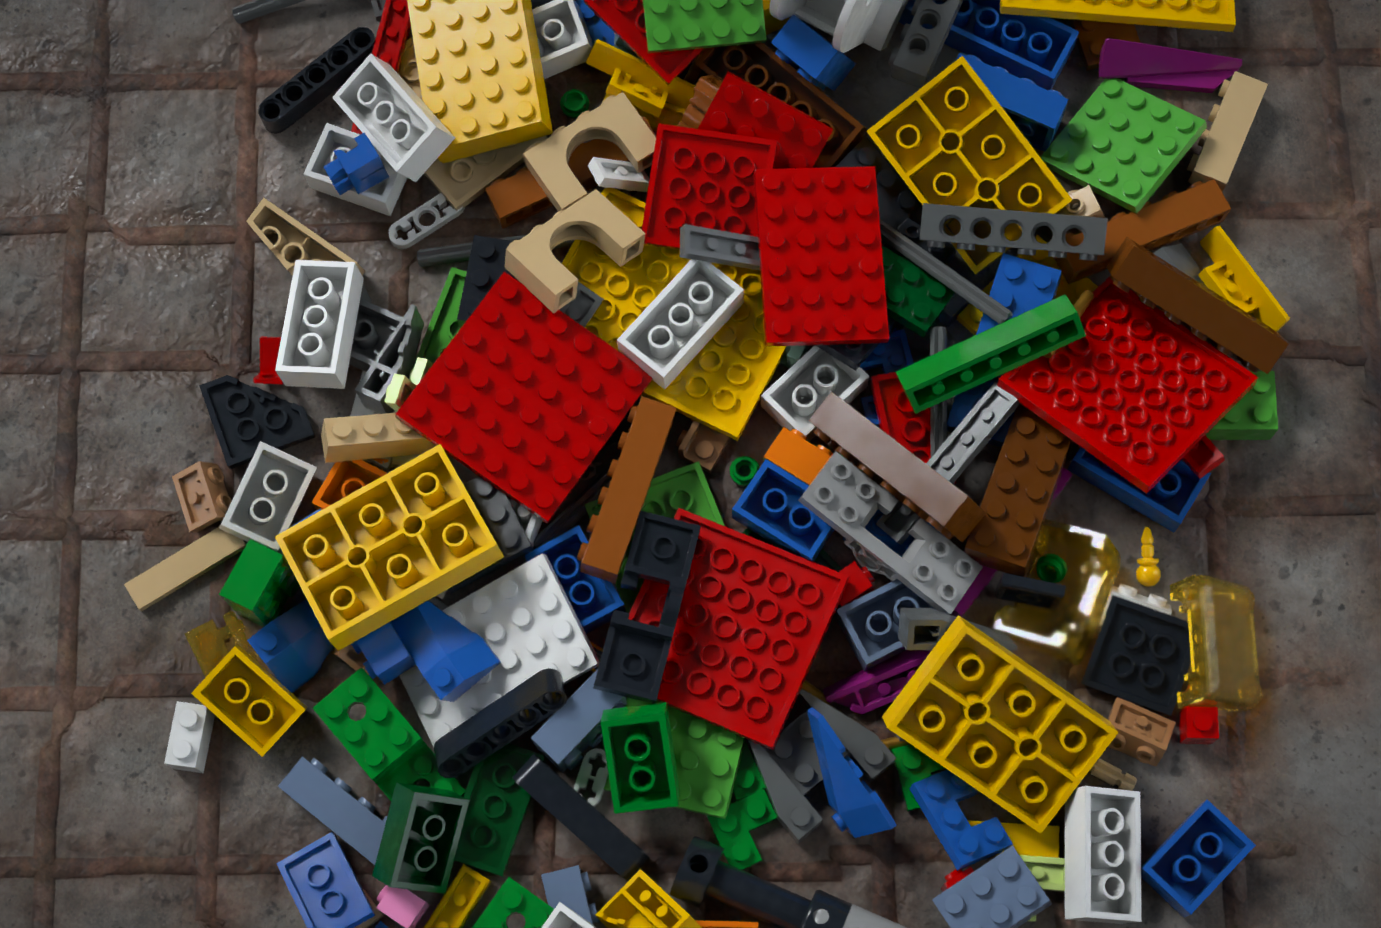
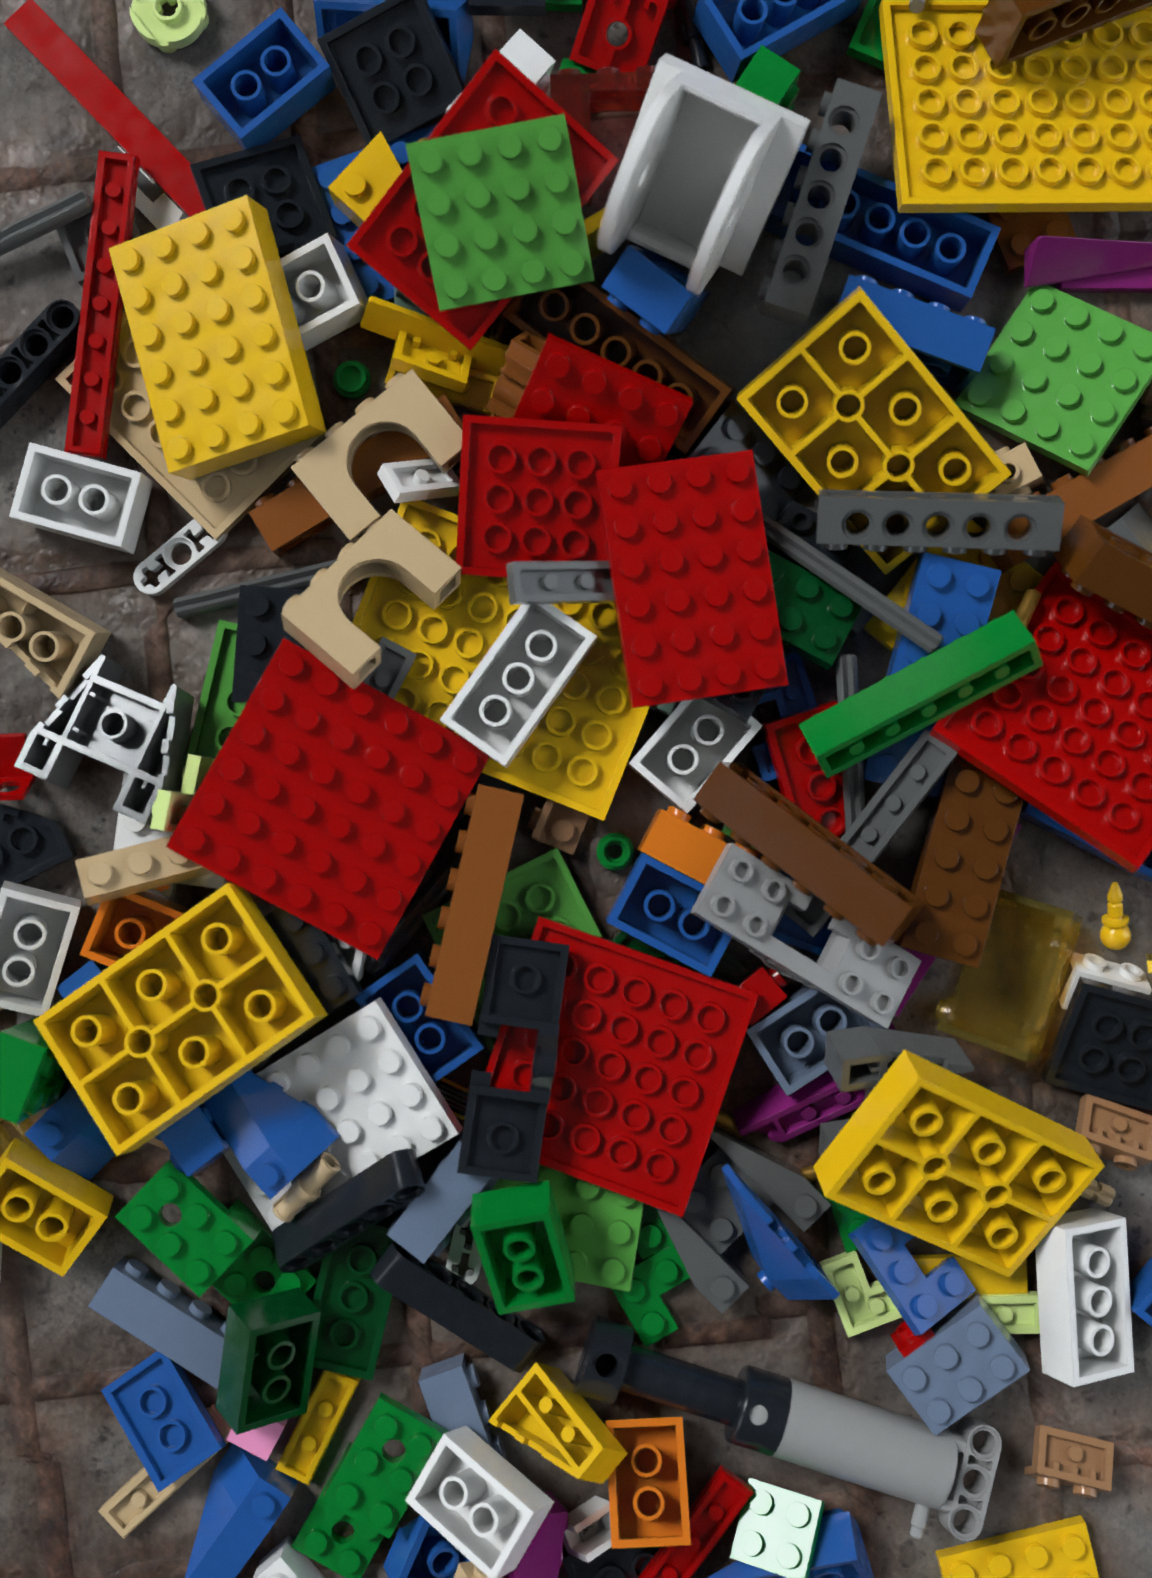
camera: 10 degrees left, 15 degrees up
(319, 324) = (53, 728): white brick -> none
(357, 168) = (75, 509): blue hips -> none
(393, 118) = (112, 434): white brick -> none
(468, 700) = (306, 1187): none -> tan pin
(911, 848) = (859, 1303): none -> yellowish green plate
(1029, 591) = (980, 984): black tile -> none
(1049, 574) = (1001, 945): green plate -> none

